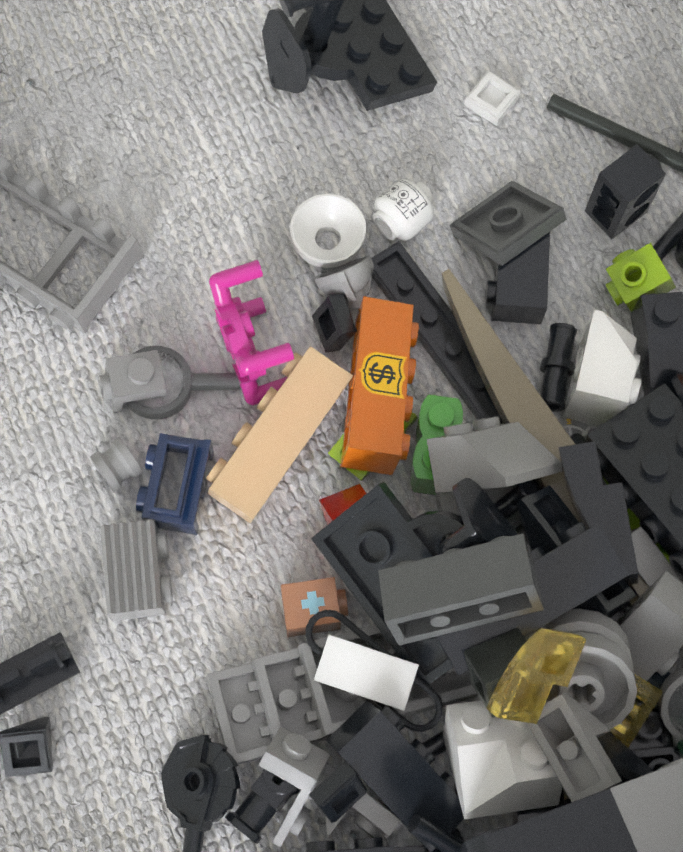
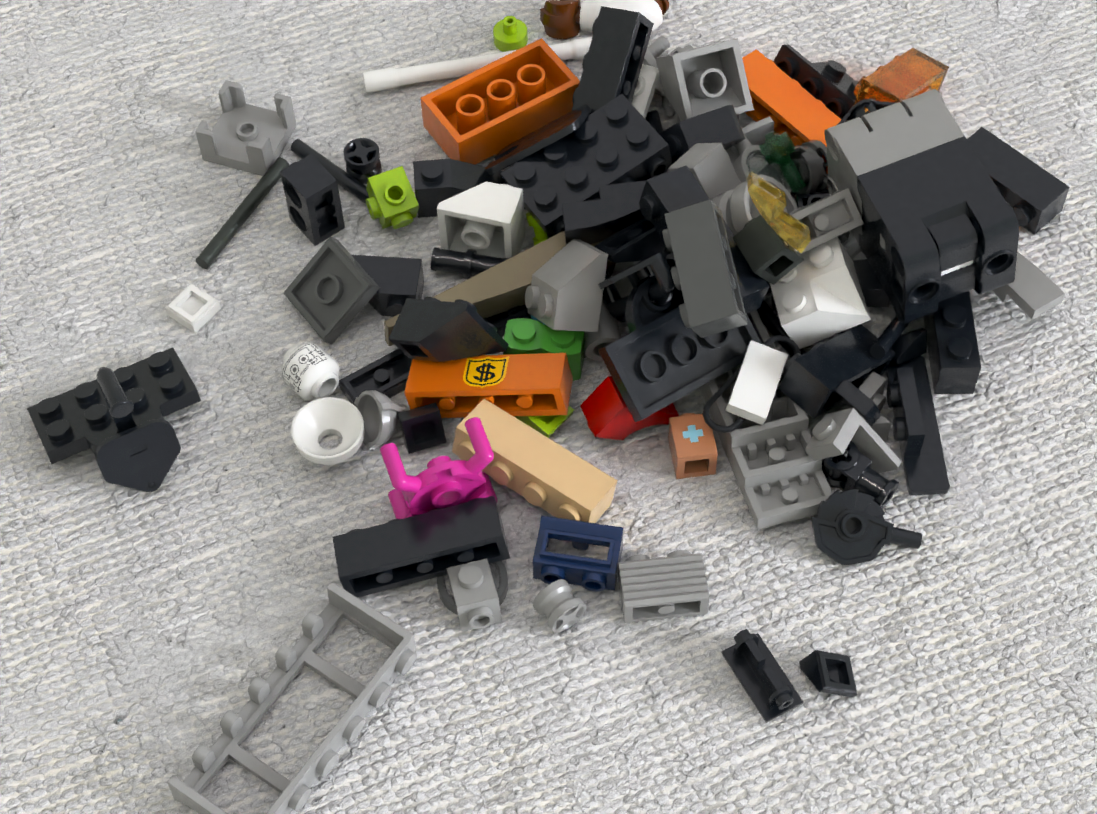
camera: 85 degrees left, 15 degrees down
(183, 325) = (419, 546): none -> black brick
(425, 325) = (444, 331): none -> black slope

